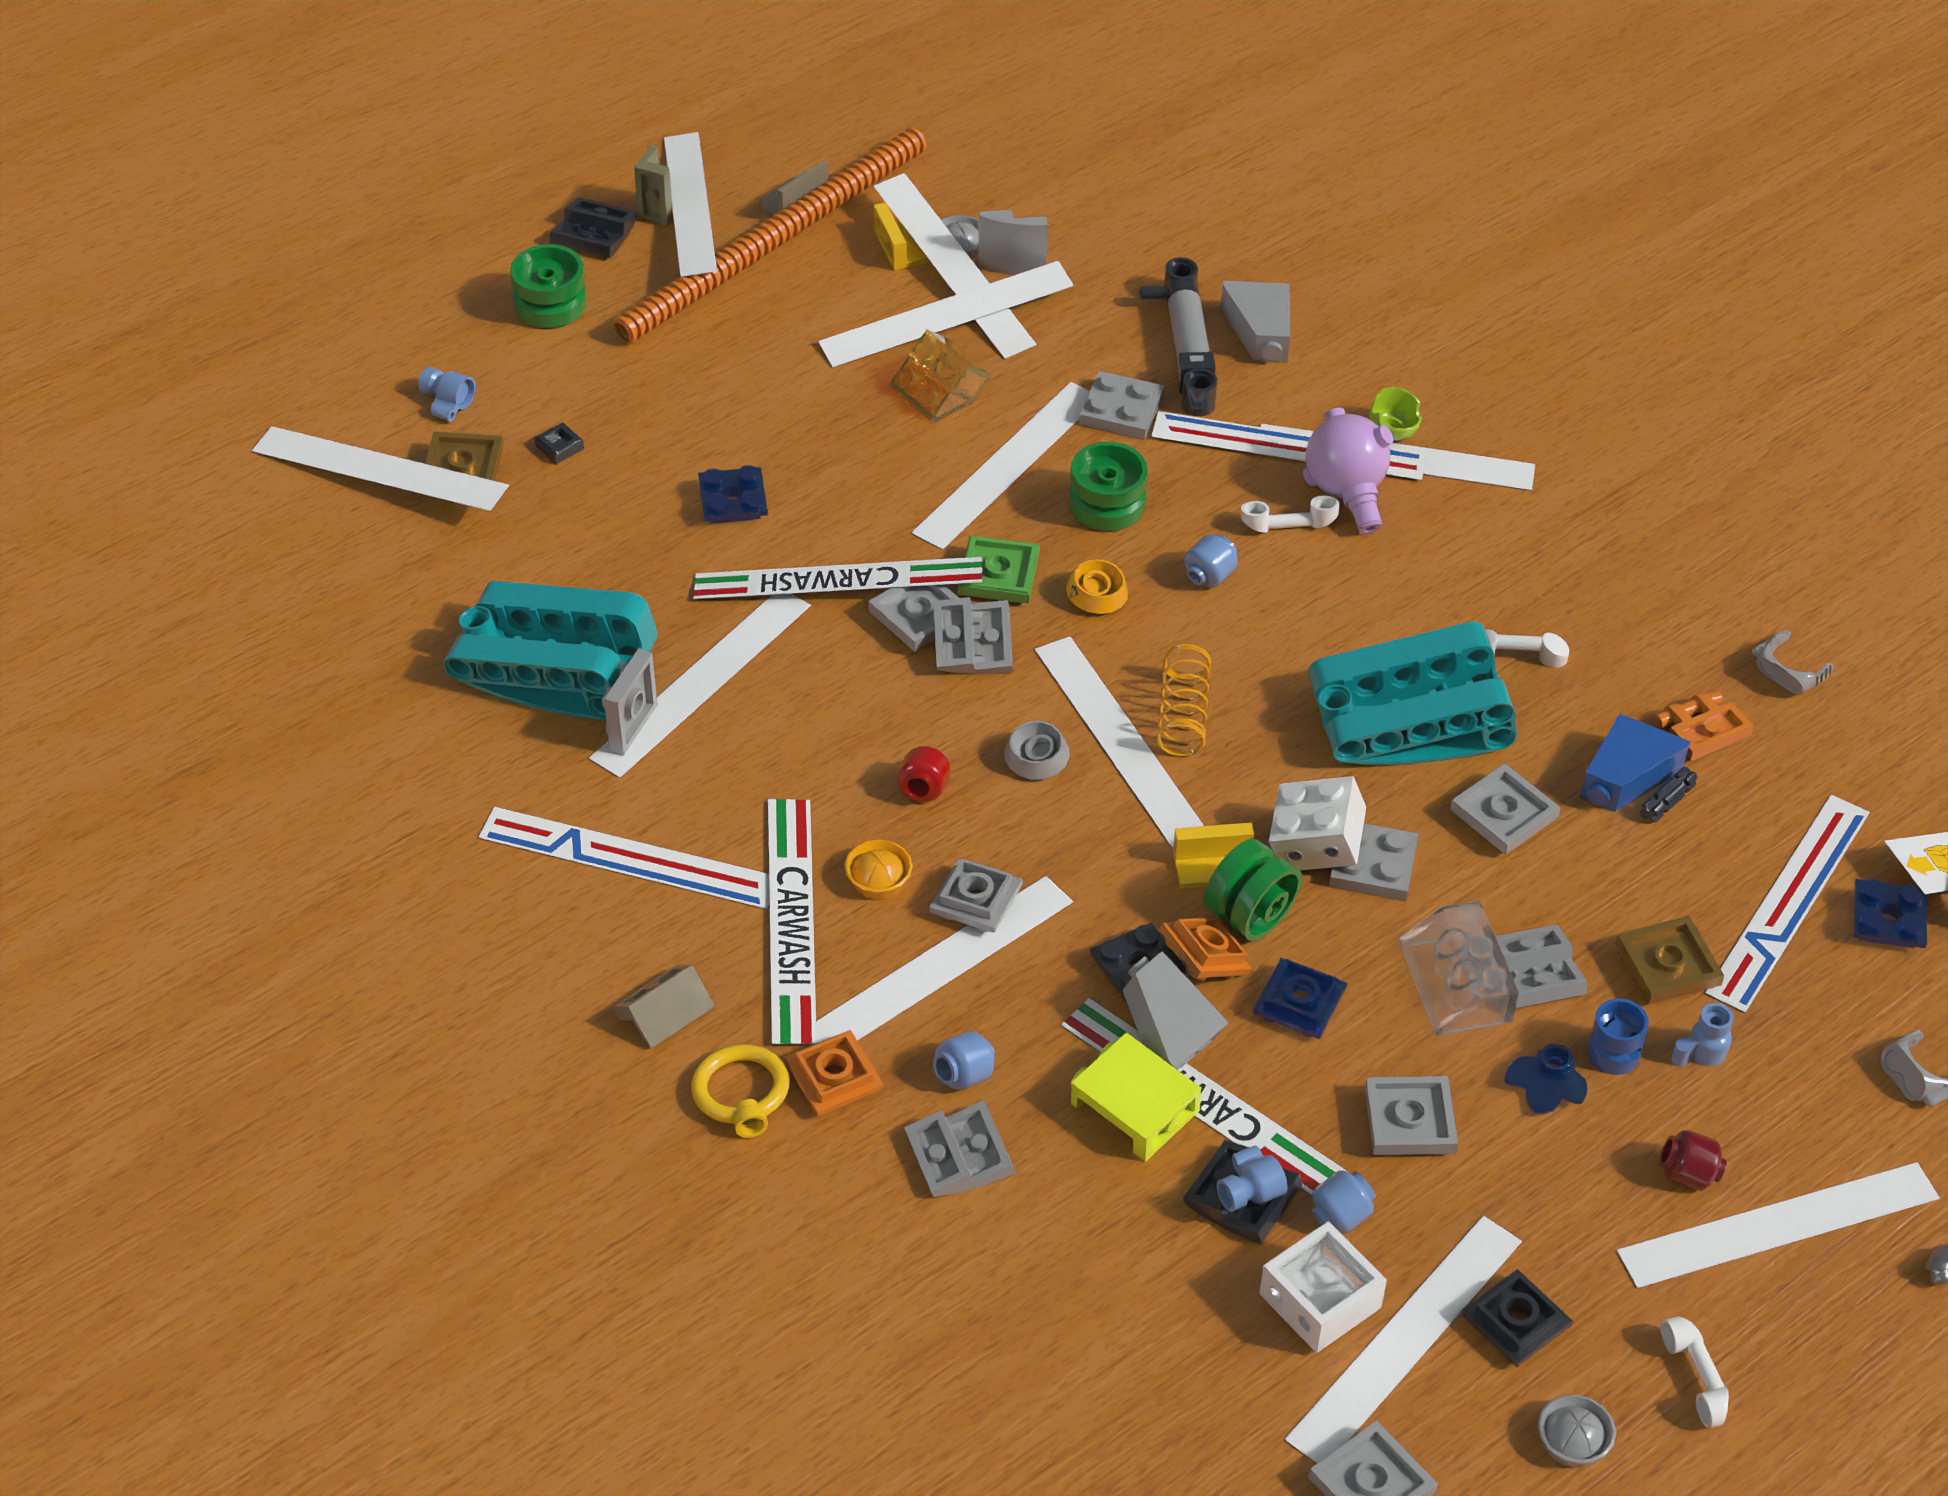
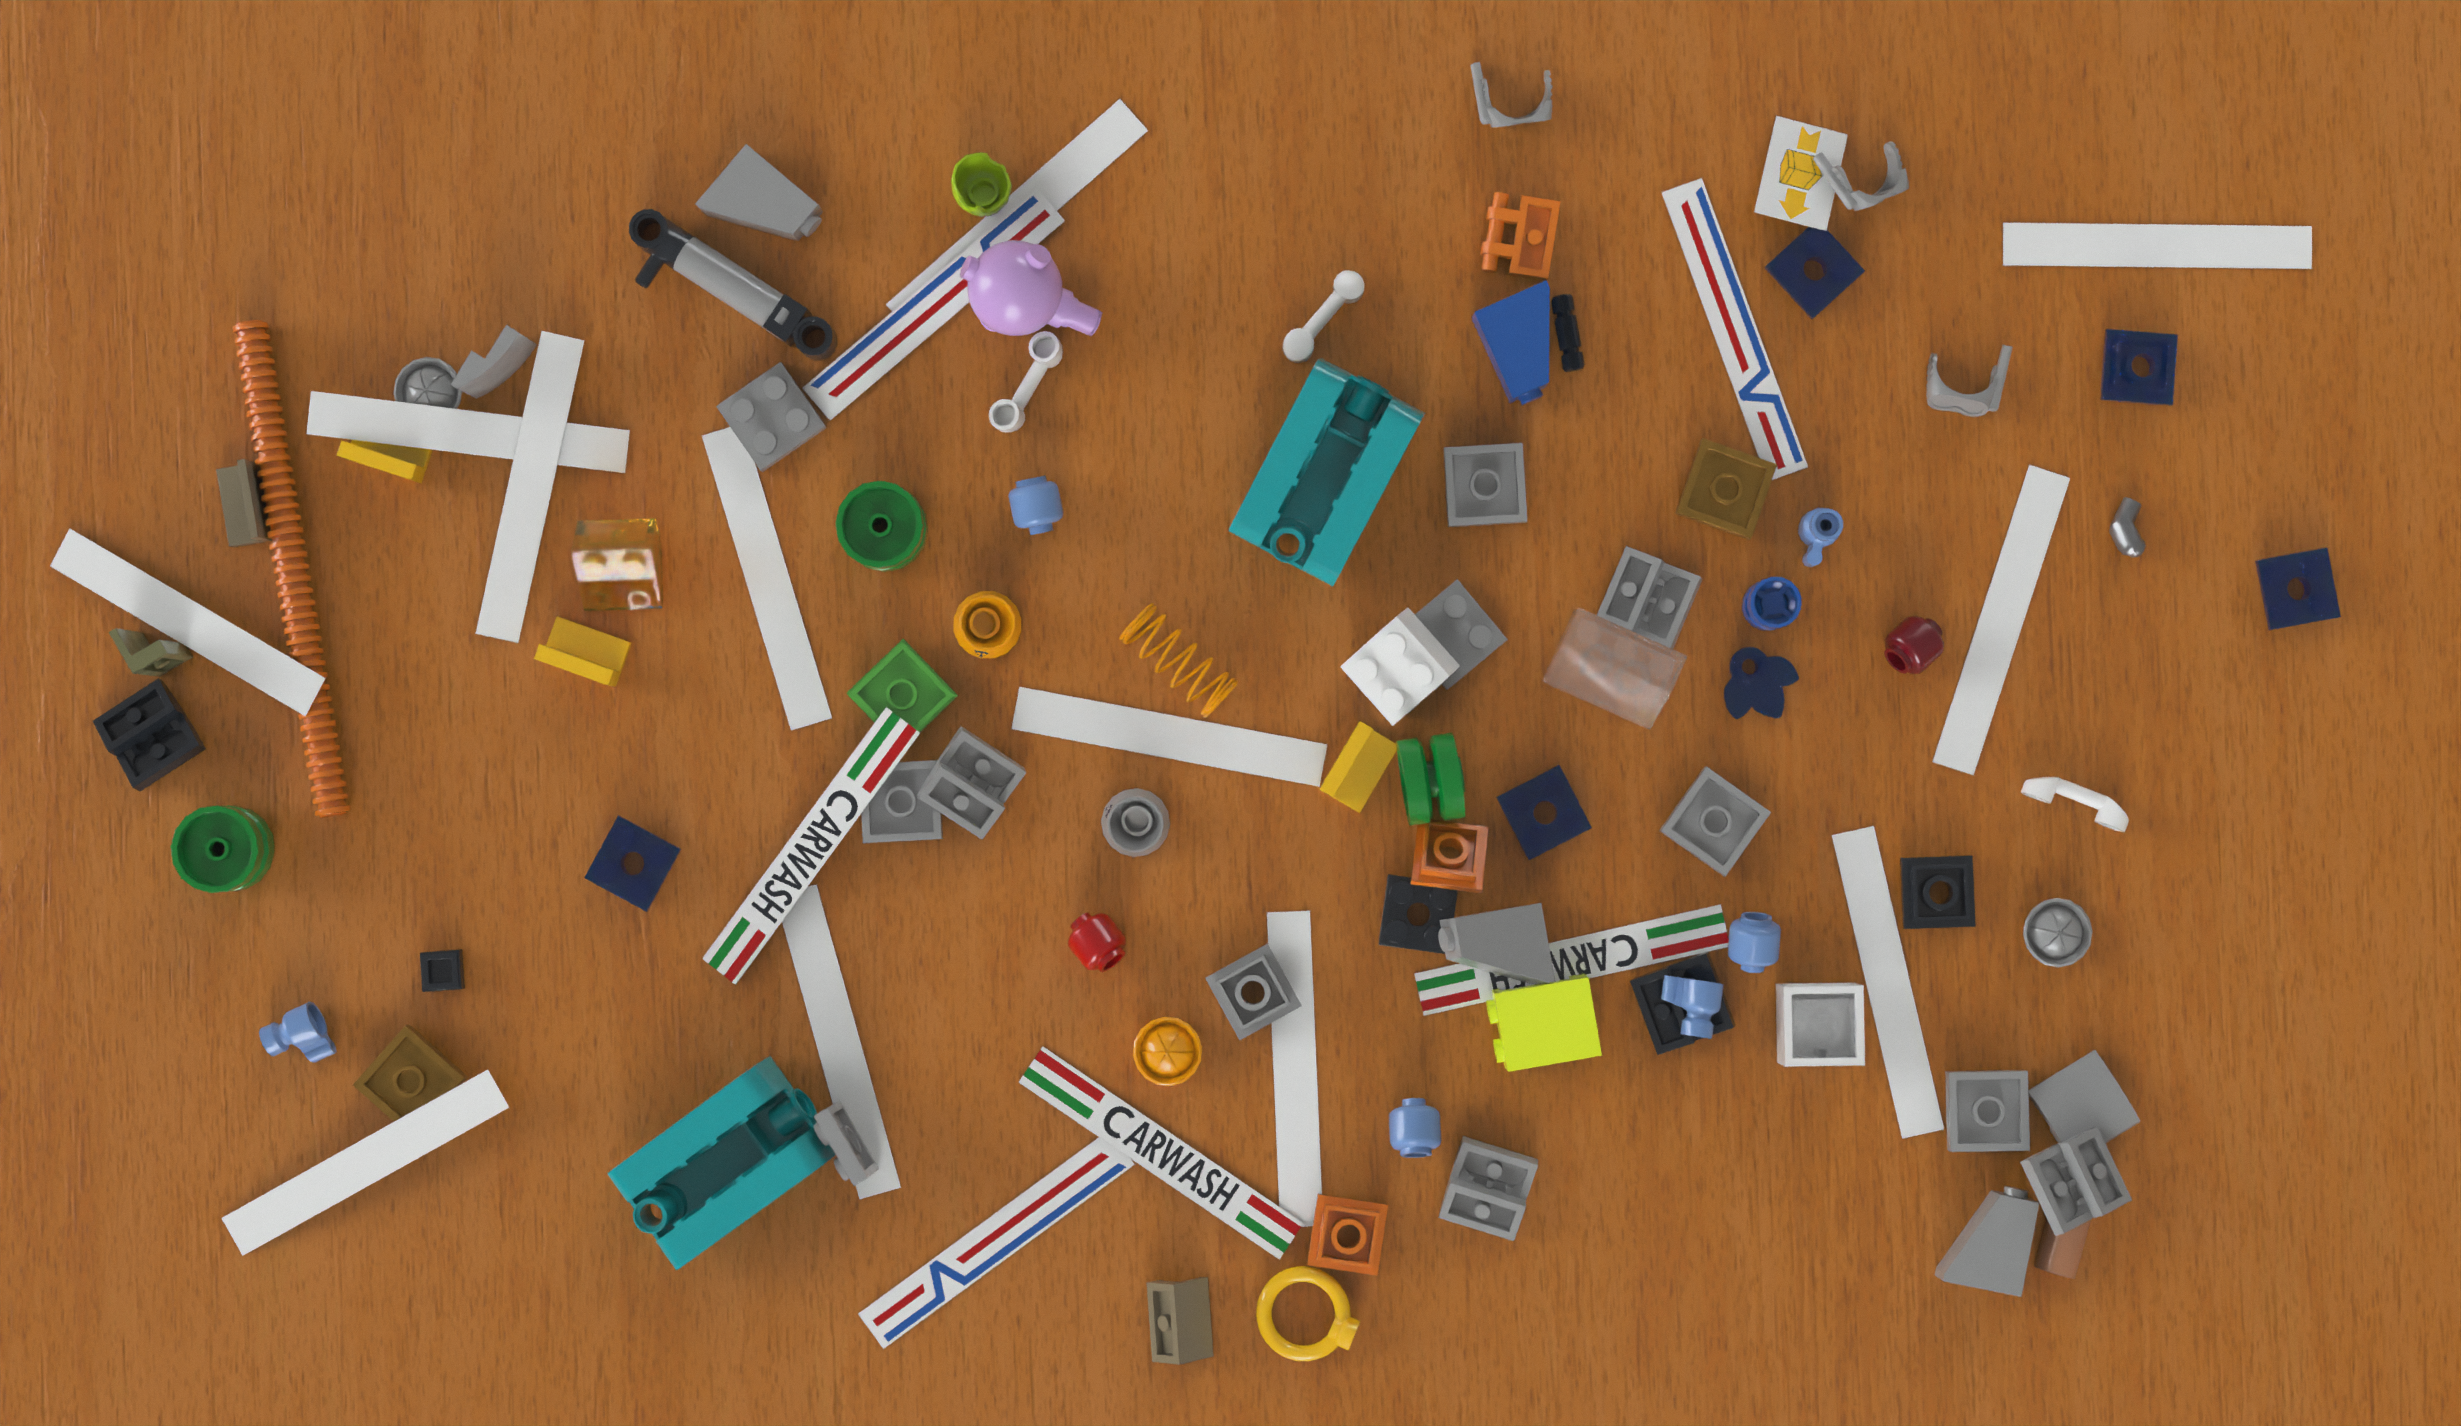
camera: 45 degrees left, 40 degrees up
(858, 396) = (584, 651): none -> yellow panel

